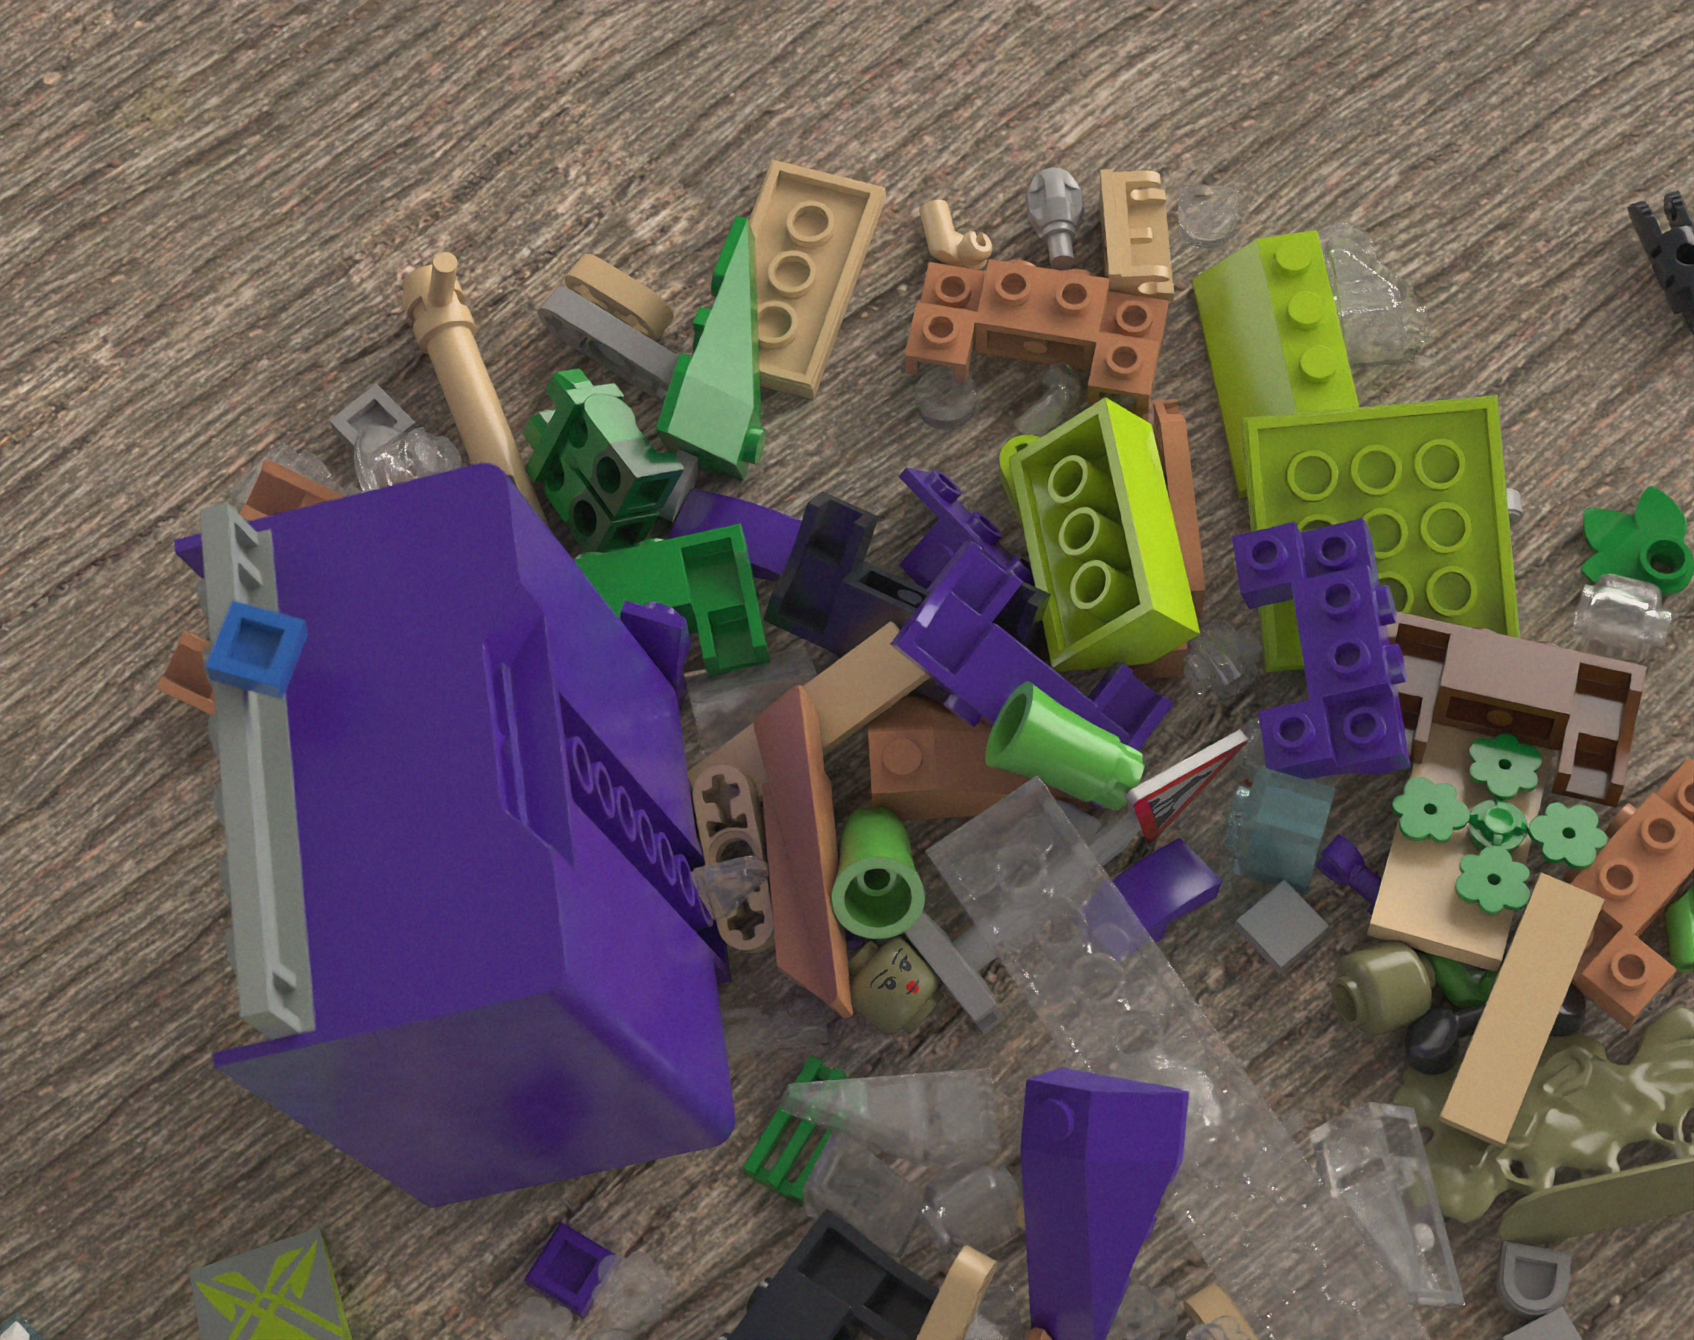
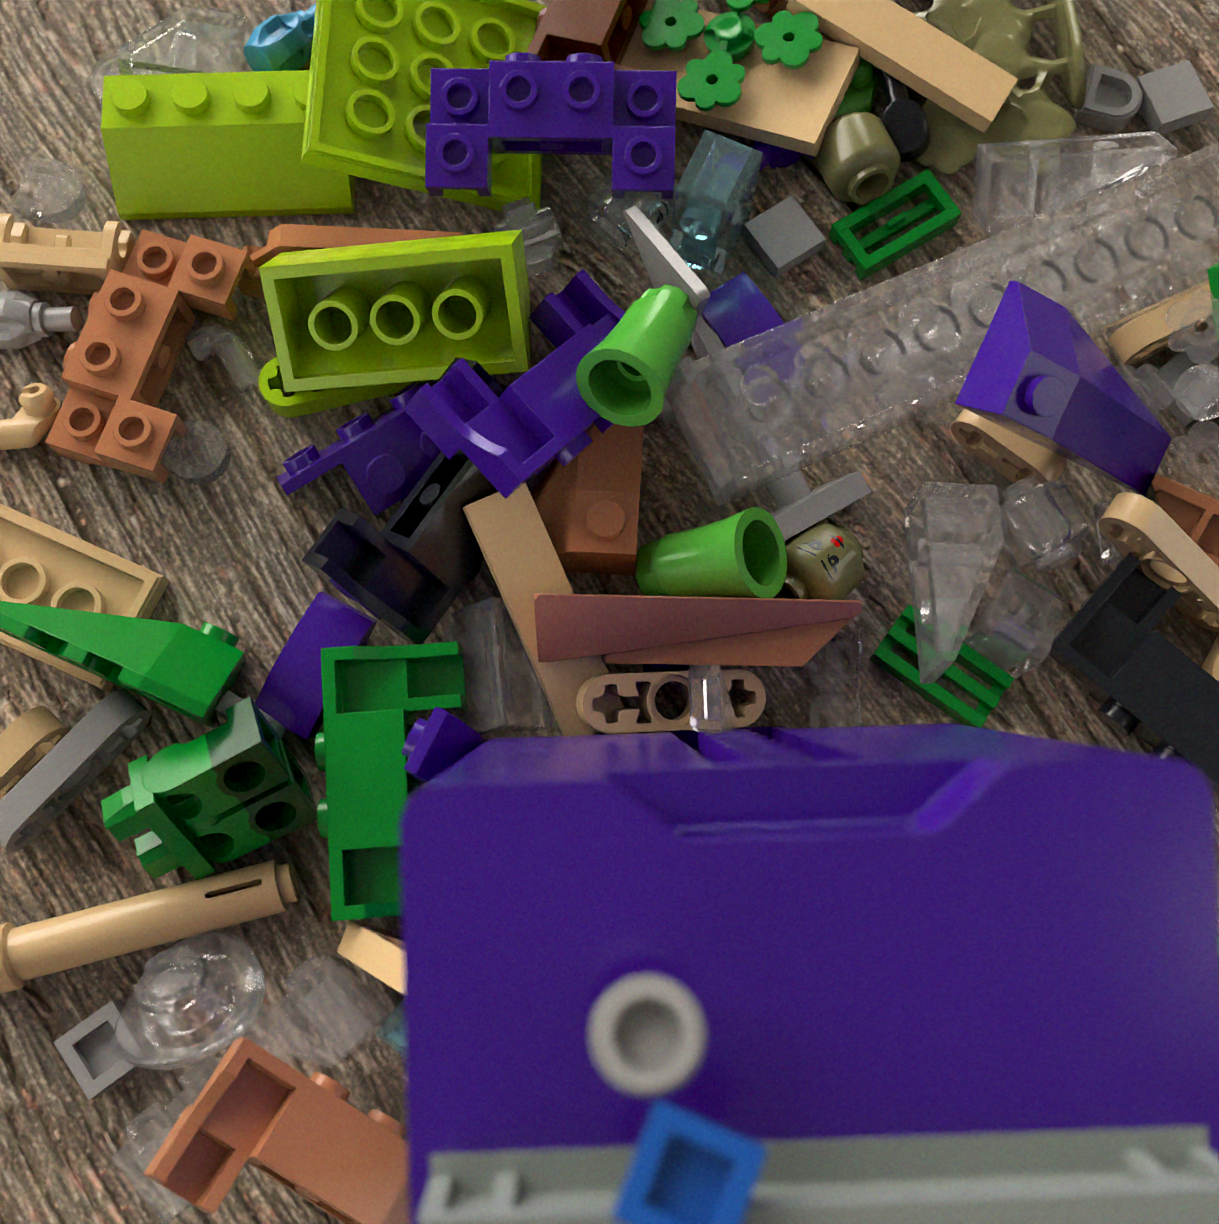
camera: 90 degrees left, 10 degrees up
(346, 618) = (647, 1035): none -> light grey tile
(1337, 1027) = (856, 250): none -> green tile
(1408, 381) = (281, 42): none -> piece

